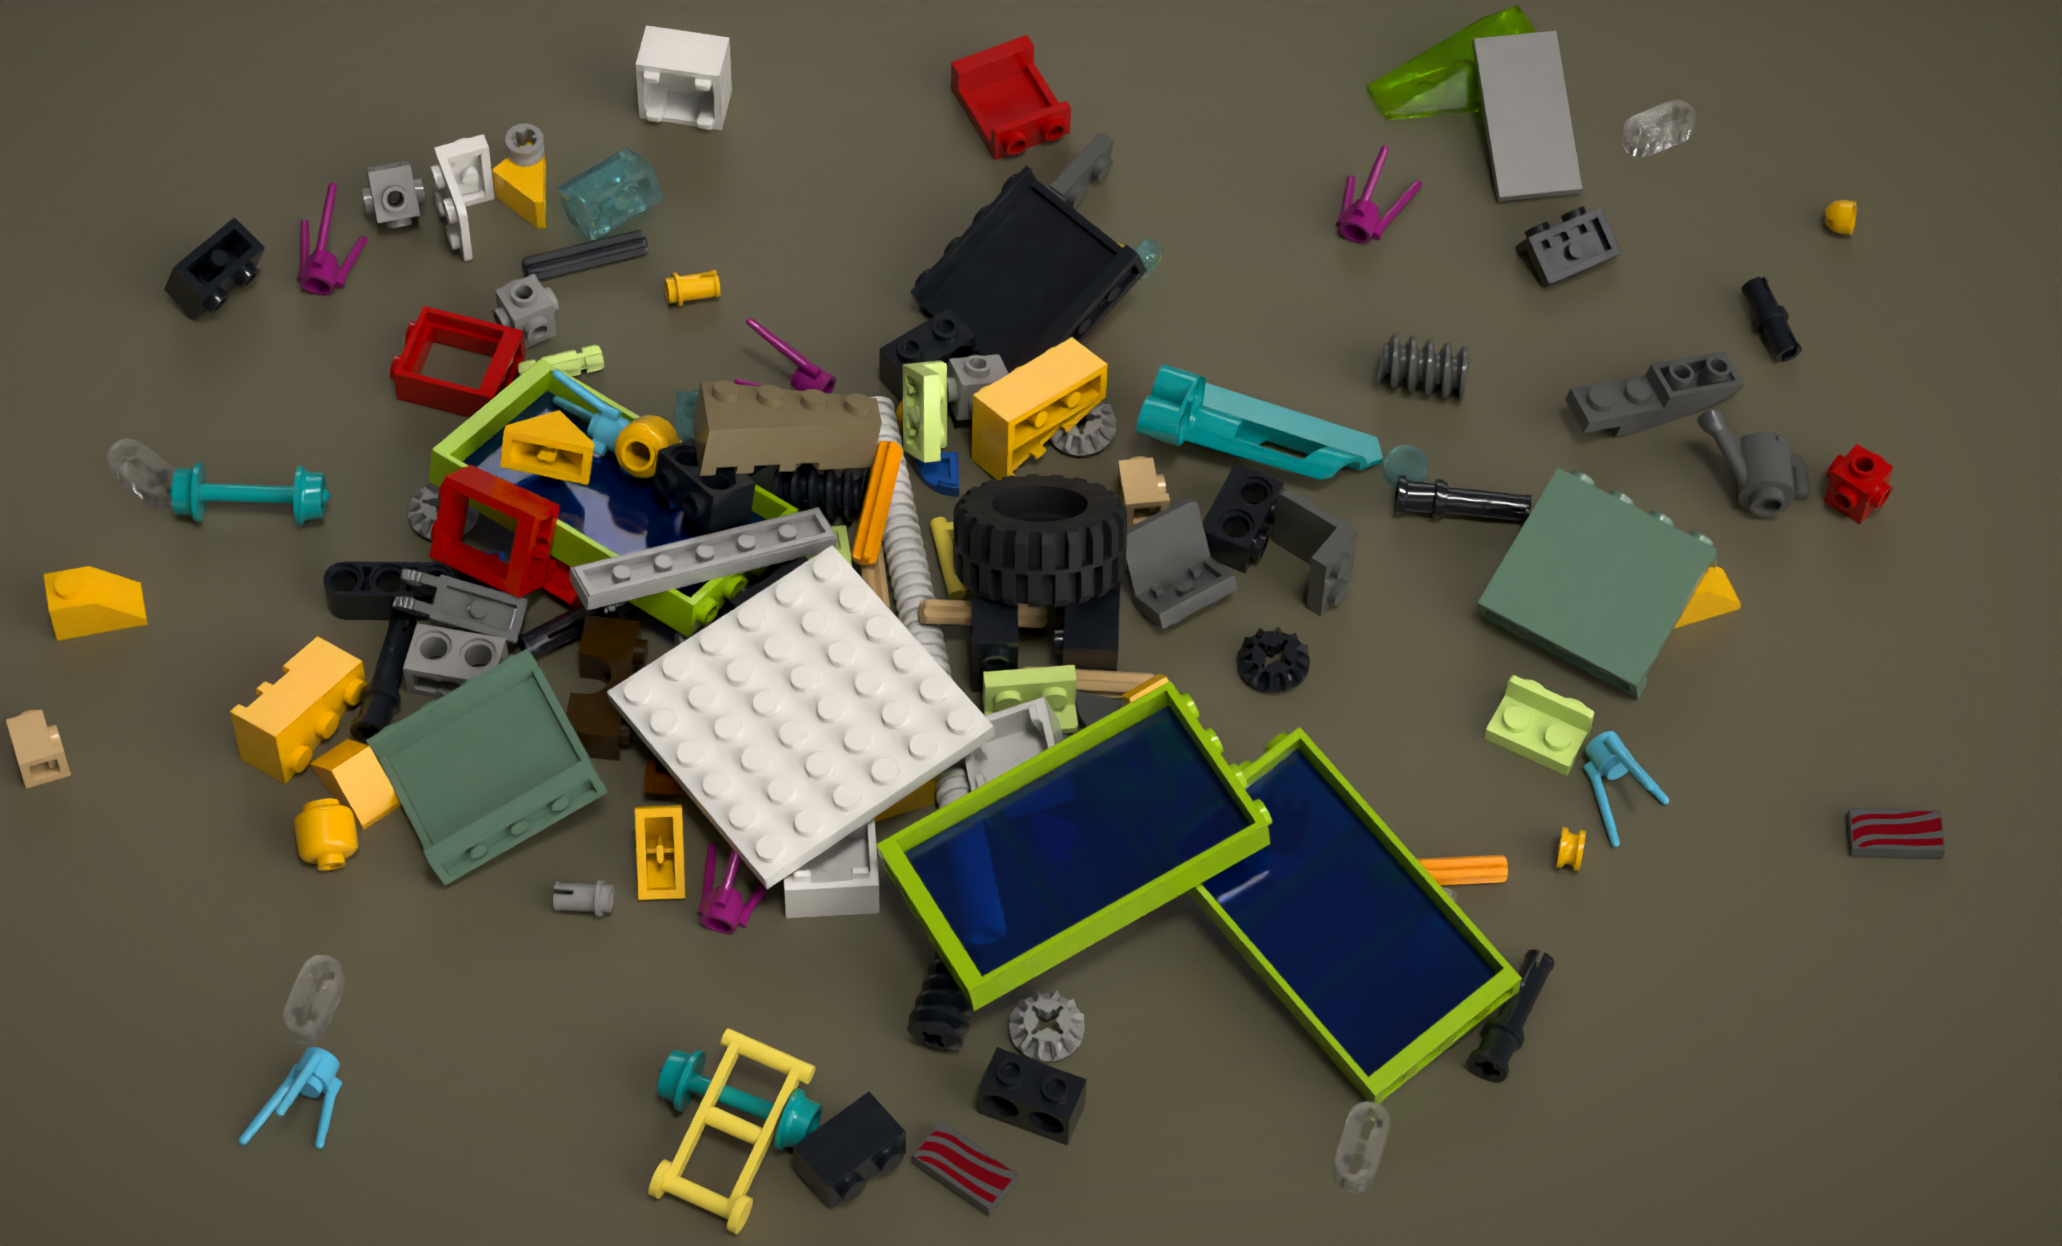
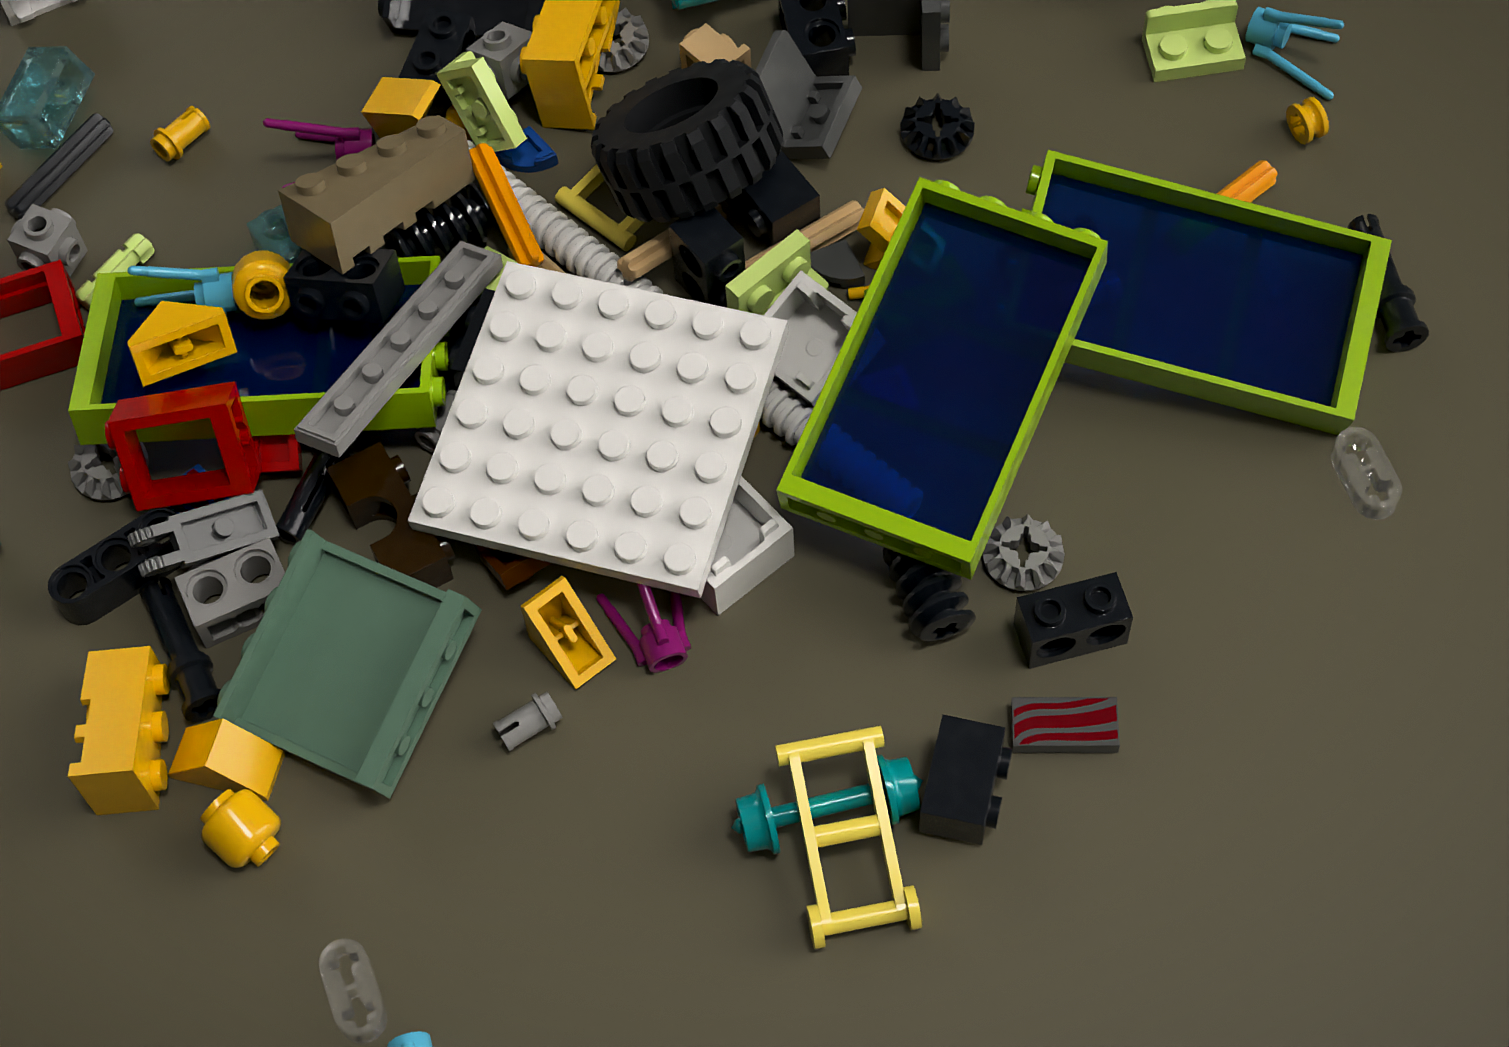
camera: 30 degrees left, 5 degrees up
(861, 371) = (399, 104): none -> yellow slope

